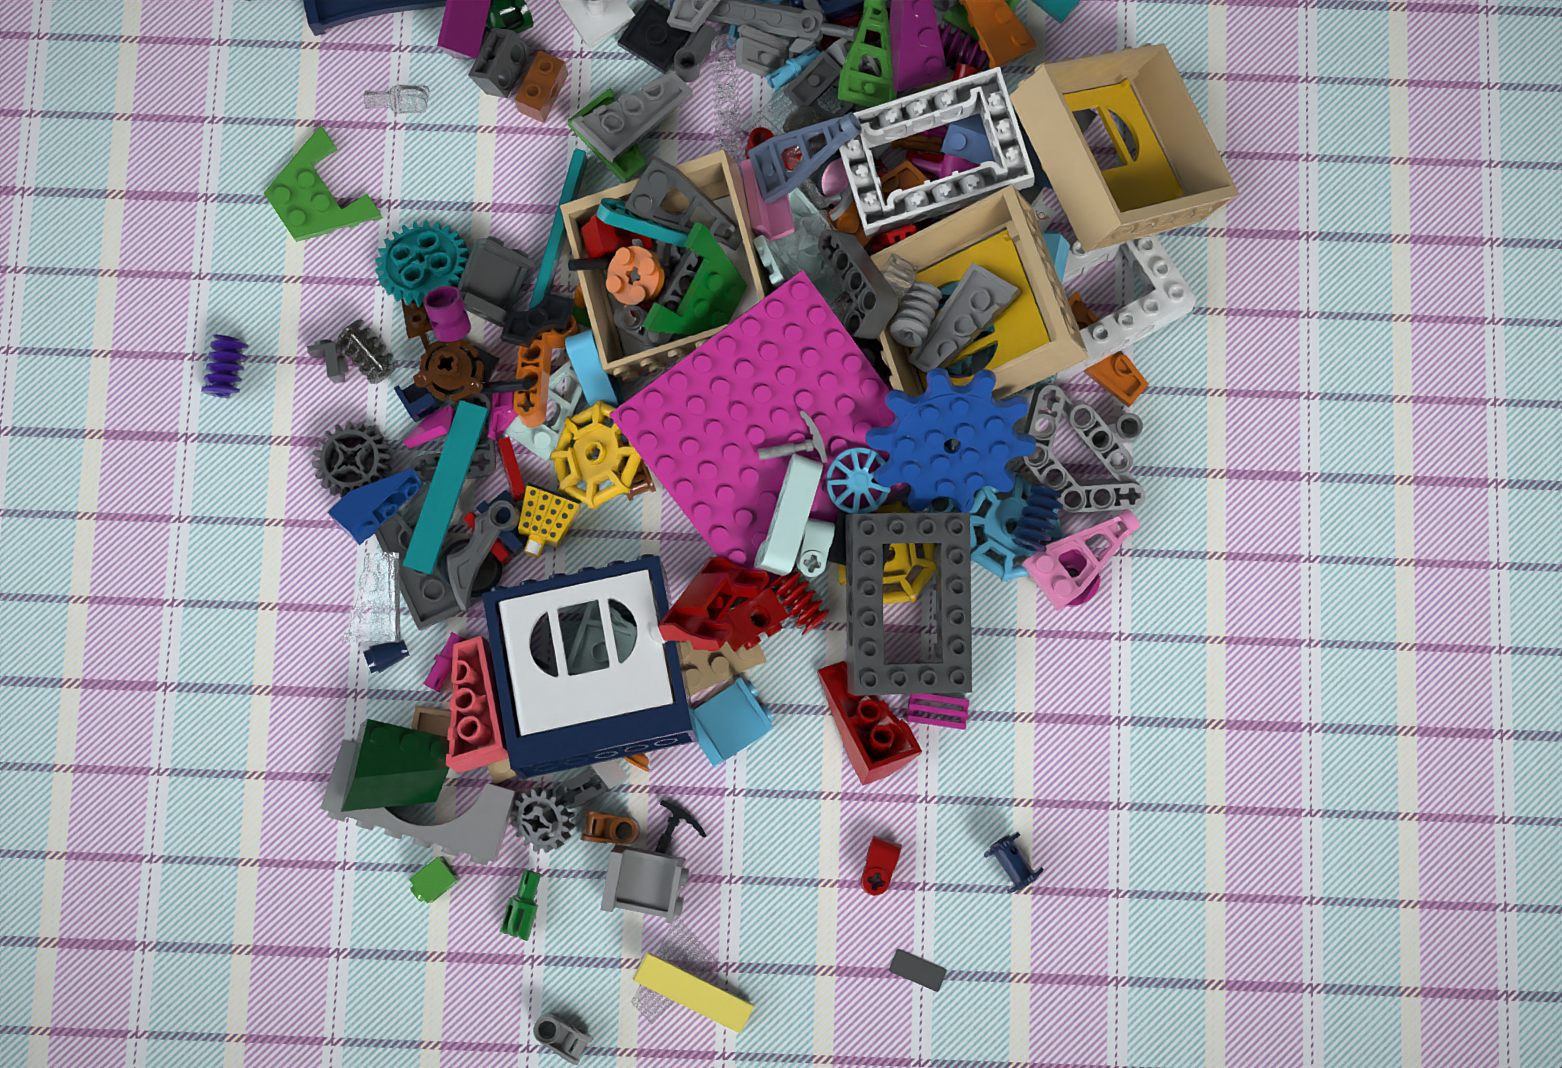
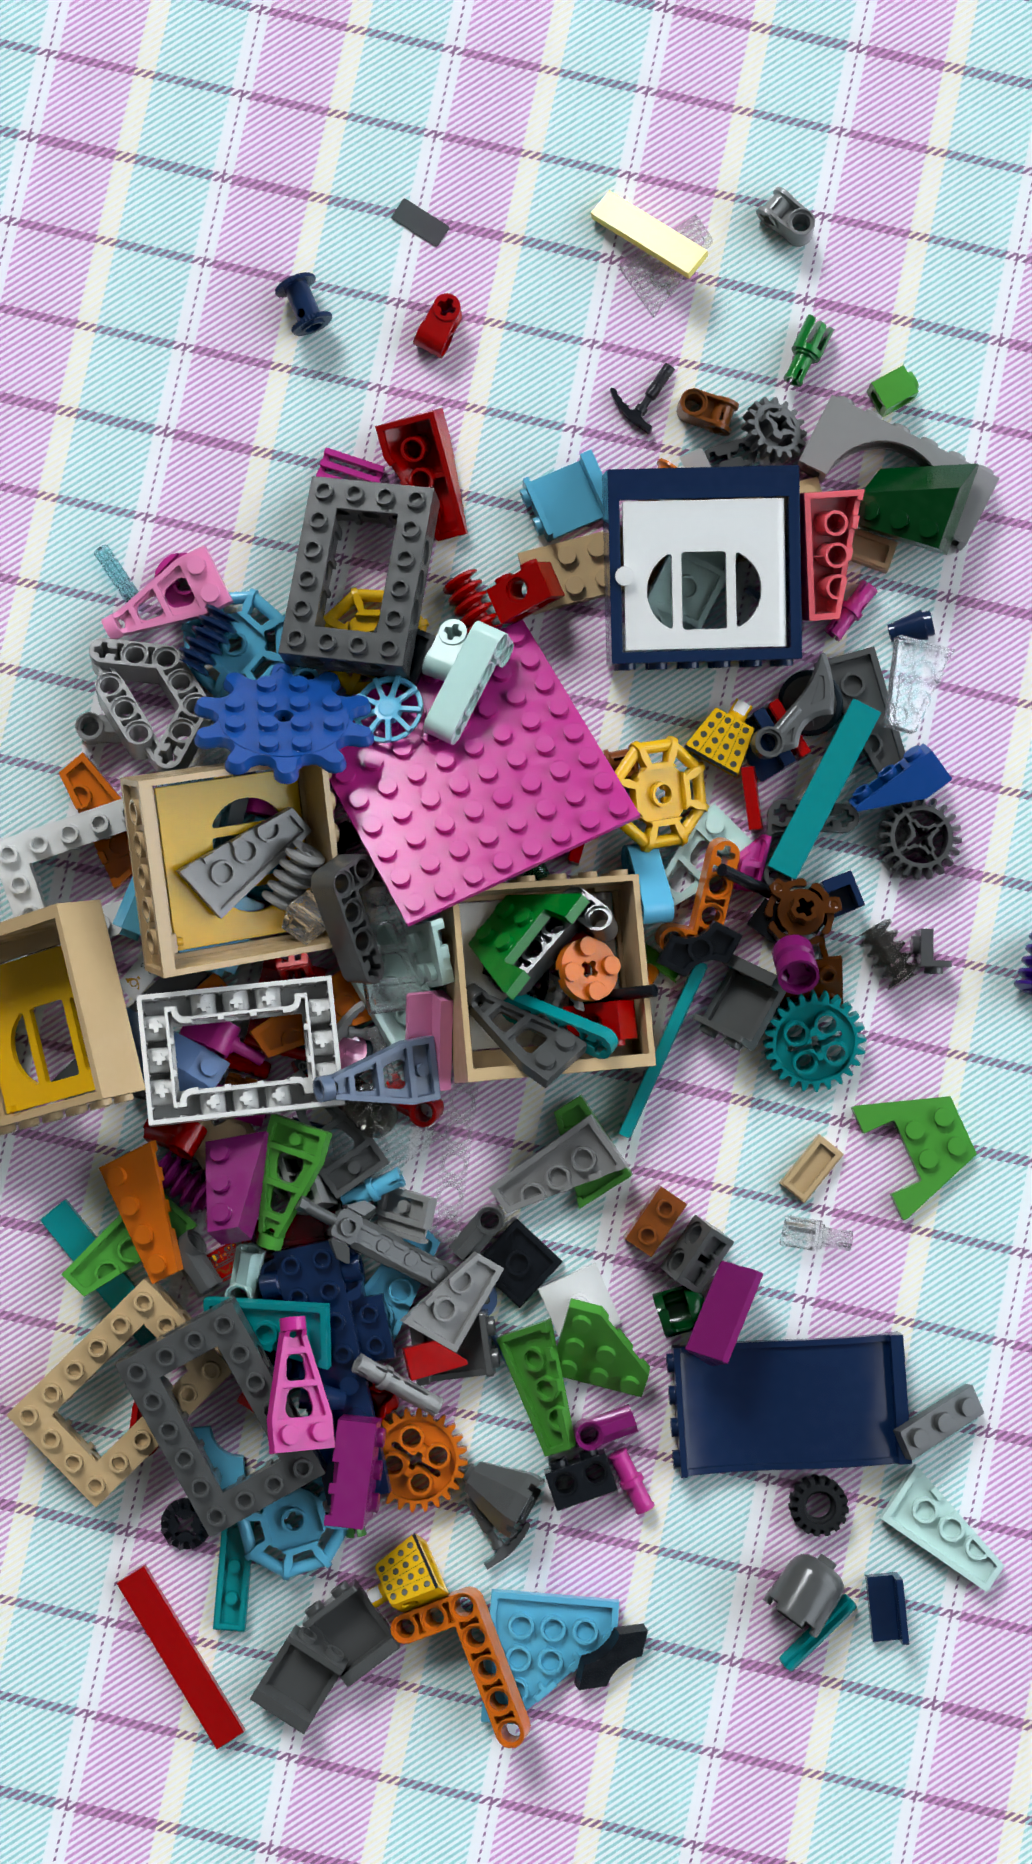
camera: 175 degrees left, 5 degrees up
(410, 157) = (811, 1168): none -> tan tile
(431, 427) = (830, 859): dark pink tile -> none
(644, 882) = (679, 350): light grey panel -> none
(706, 601) = (571, 606): red bracket -> none
(791, 448) = (453, 750): light grey piece -> none
(1136, 576) = (115, 572): none -> clear light blue axle

